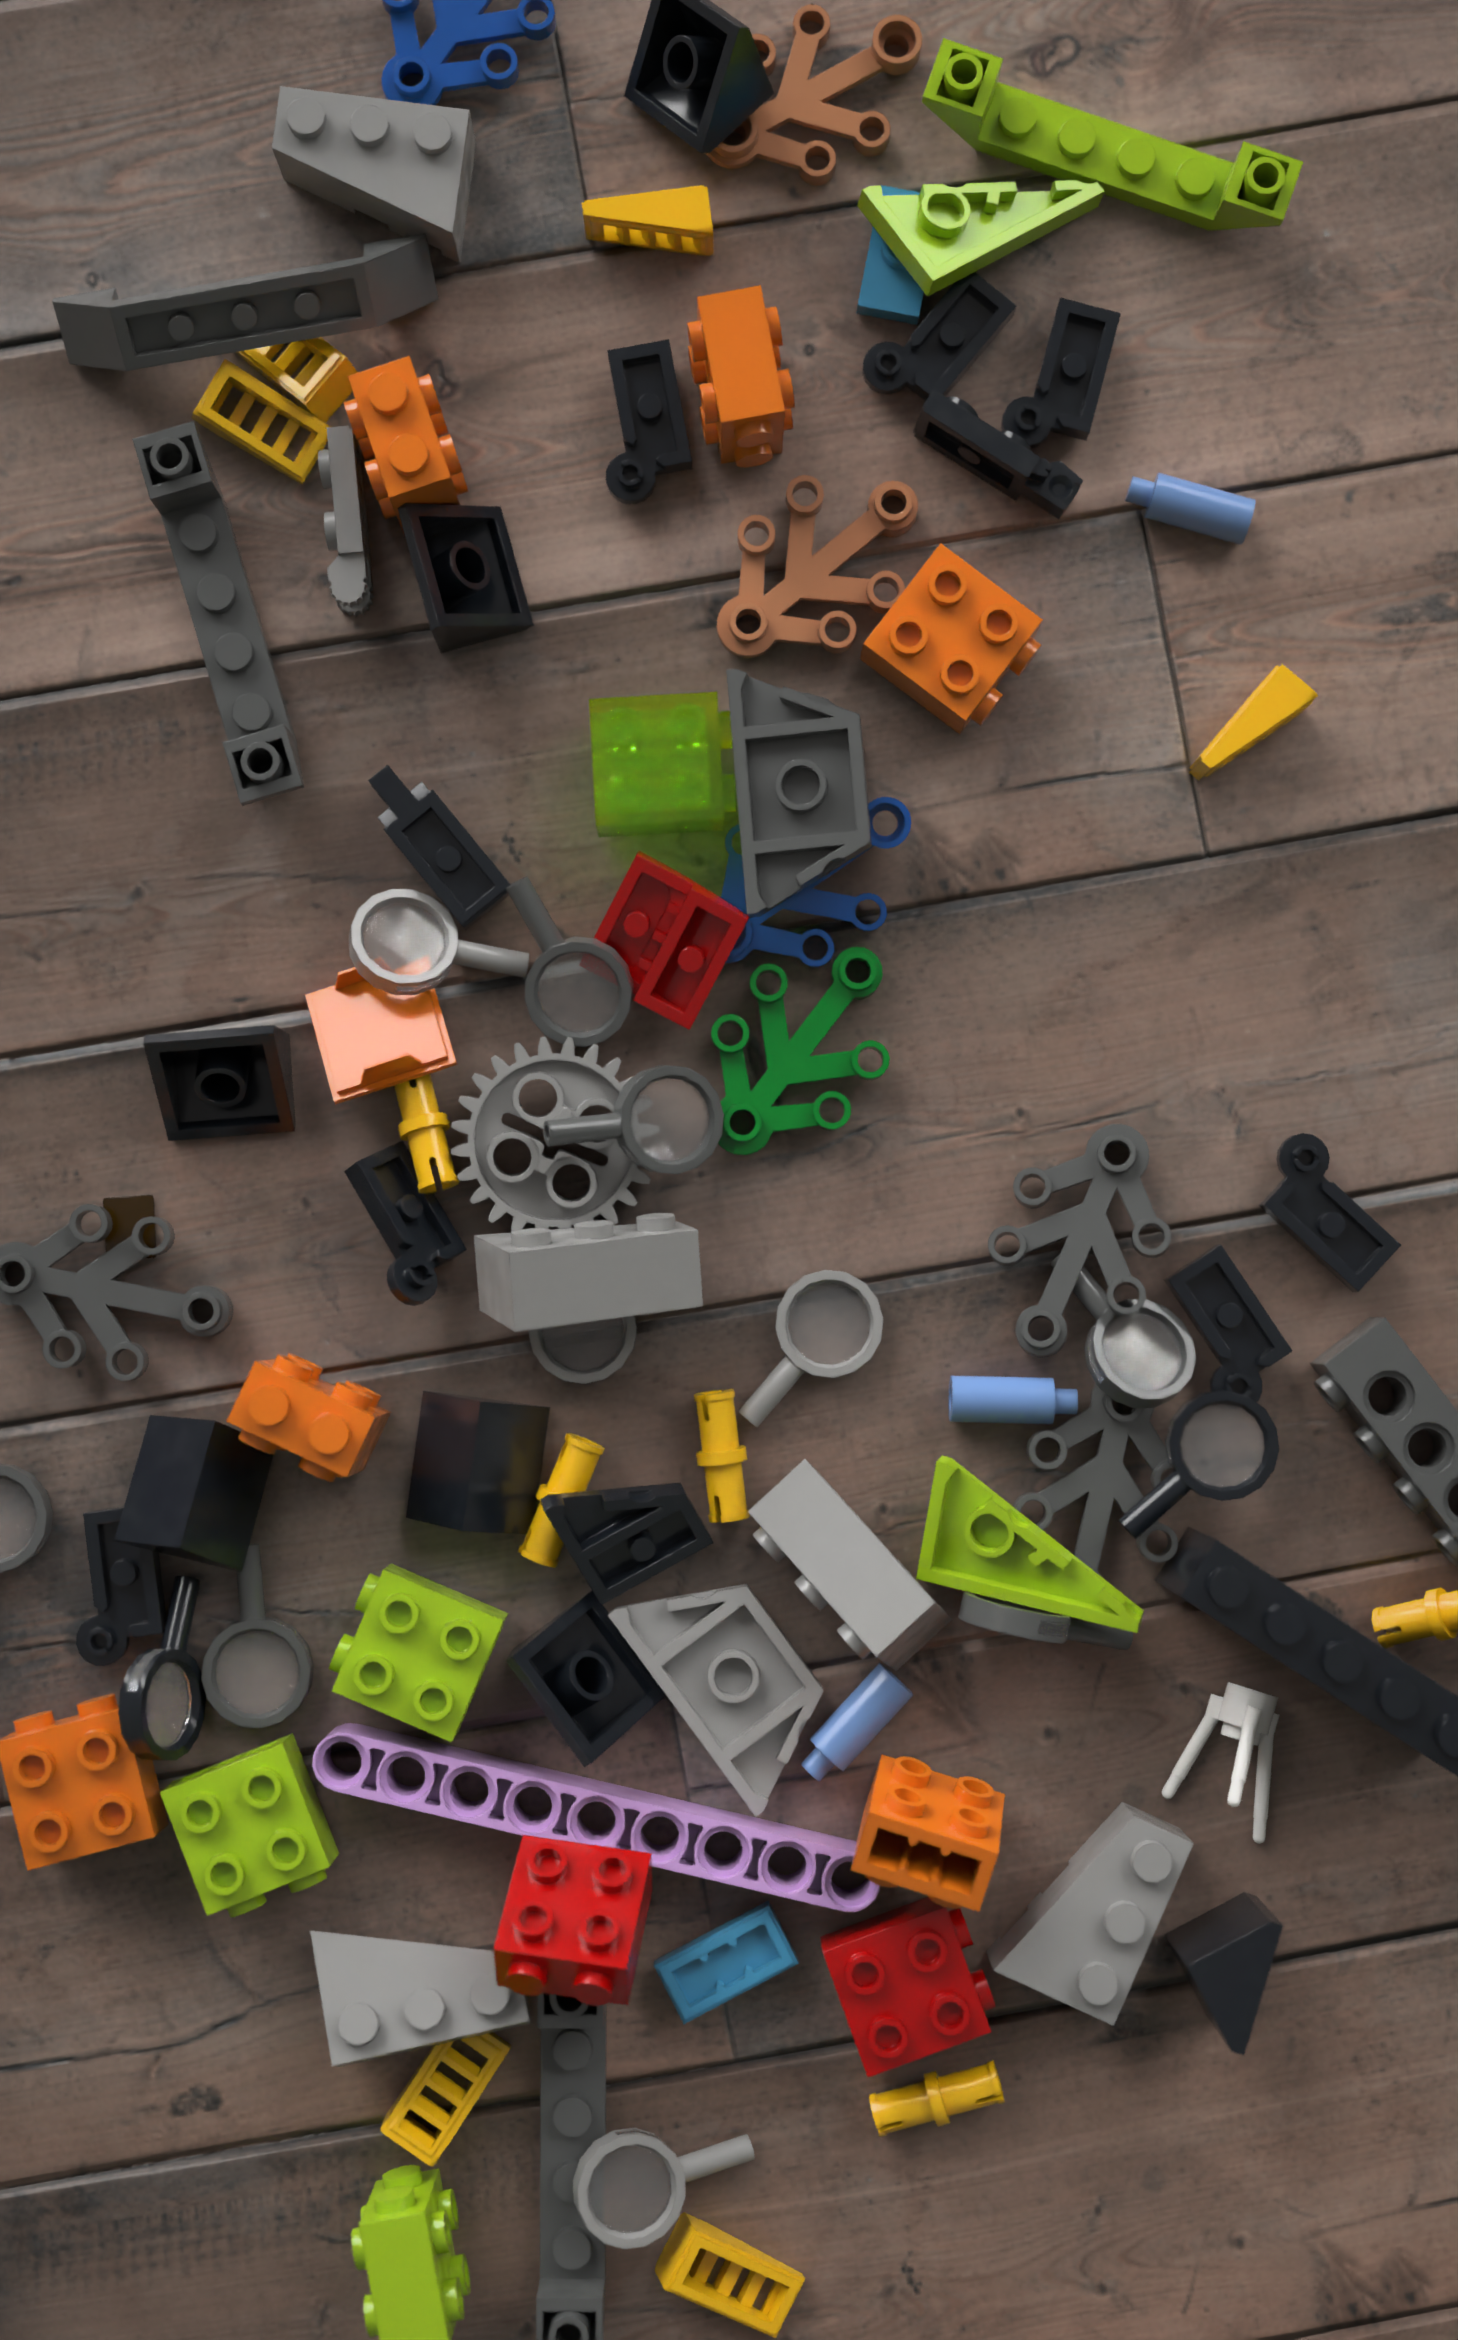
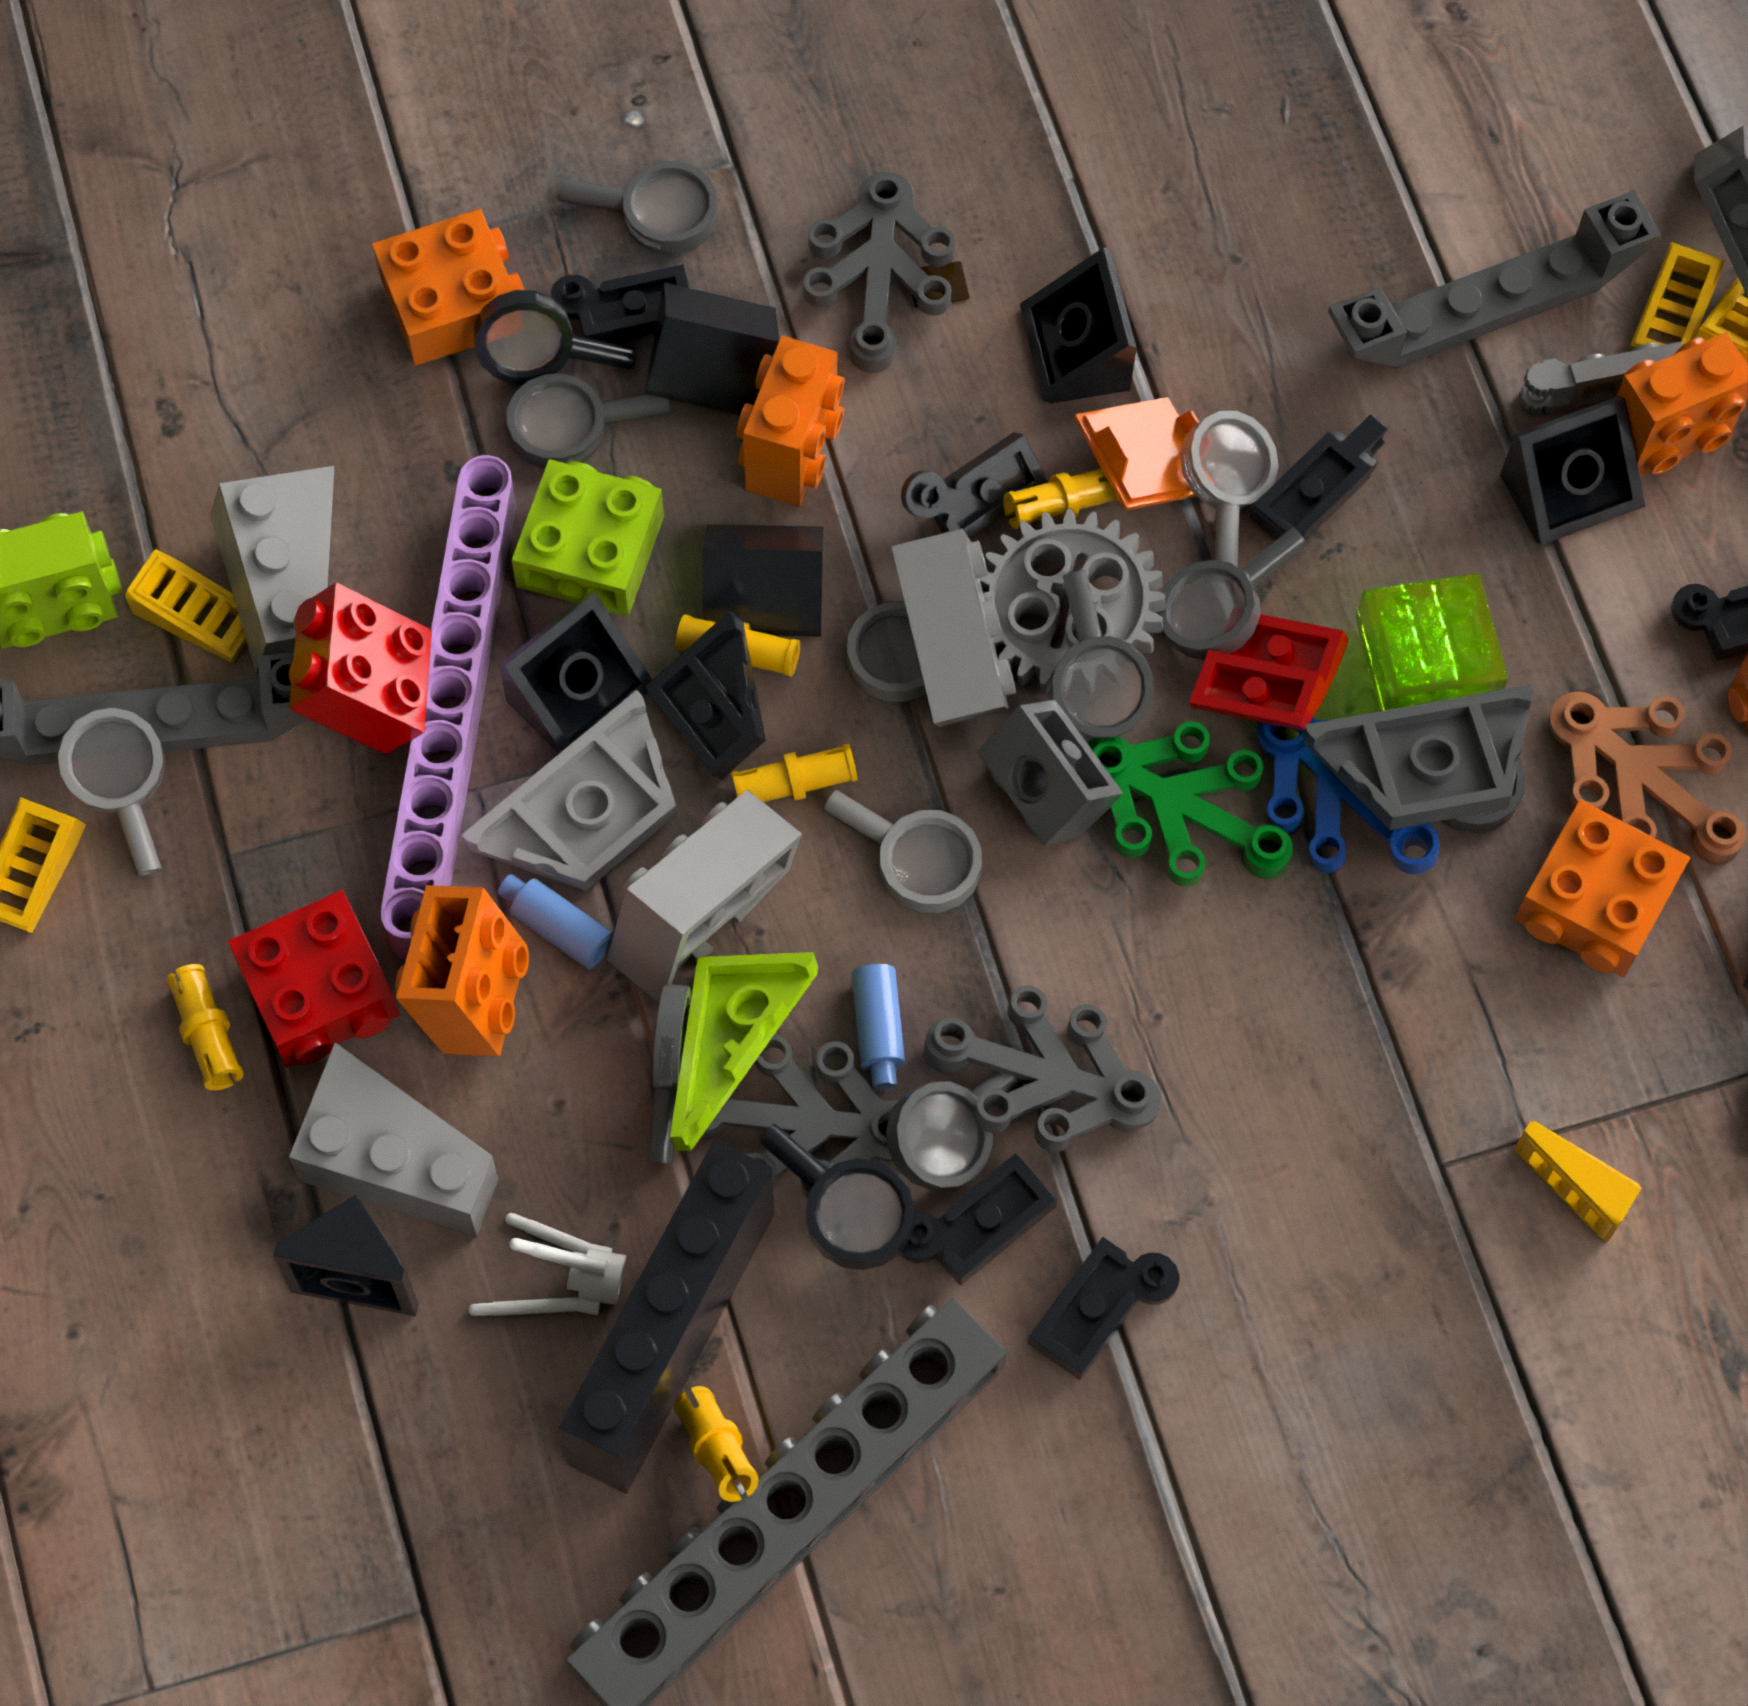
camera: 85 degrees right, 20 degrees down
(251, 1827) = (420, 419): lime brick -> none
(726, 1962) = (322, 829): dark azure plate -> none
(759, 1188) = (1041, 743): none -> dark grey brick

